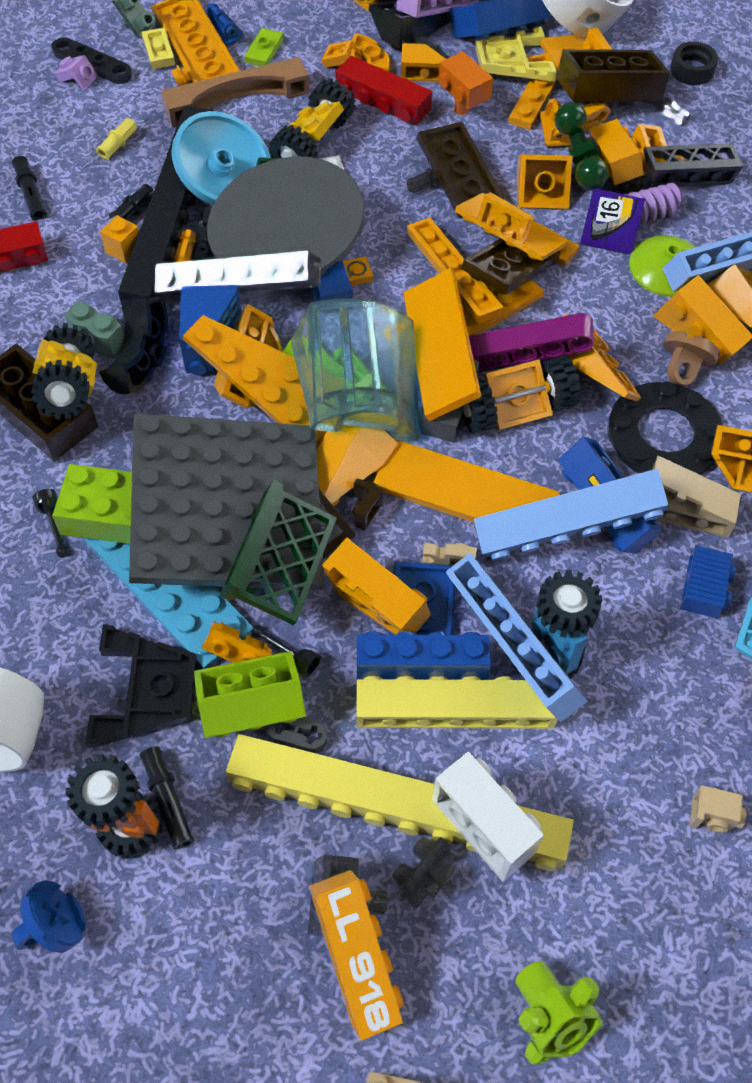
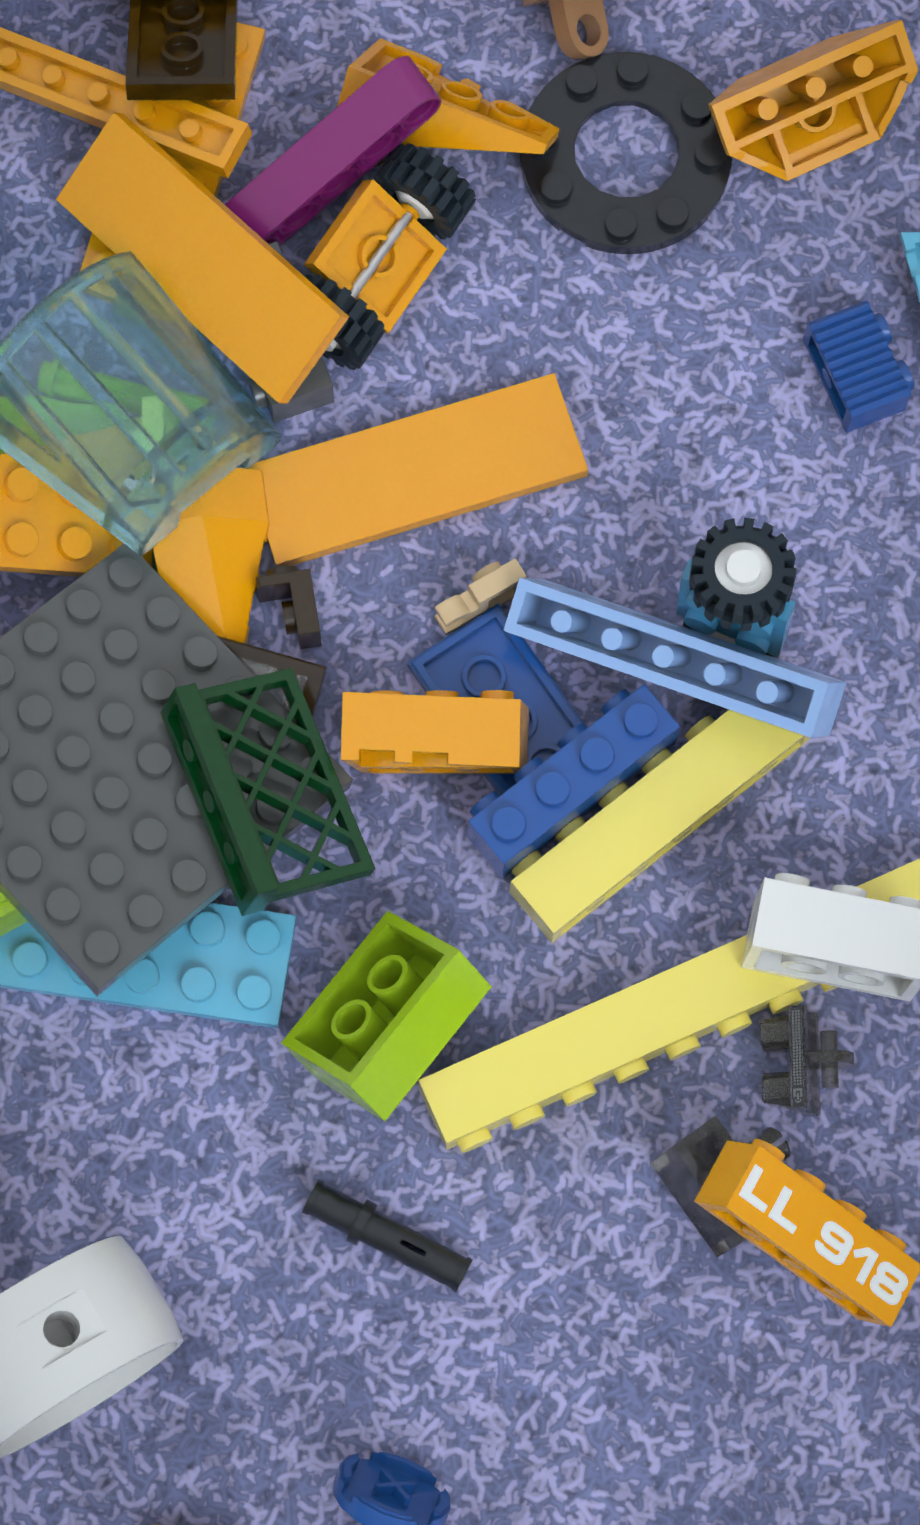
camera: 40 degrees left, 15 degrees up
(108, 801) = (366, 1302): black plate -> none
(158, 688) = (242, 1102): black wing -> none
(225, 643) = (287, 971): light orange hinge -> none
(296, 740) = (498, 1022): dark grey beam -> none
(305, 659) = (406, 902): black hinge -> none
(572, 514) = (614, 412): light blue brick -> none
(588, 466) = (631, 330): blue brick -> none
(696, 500) = (747, 255): tan wedge -> none

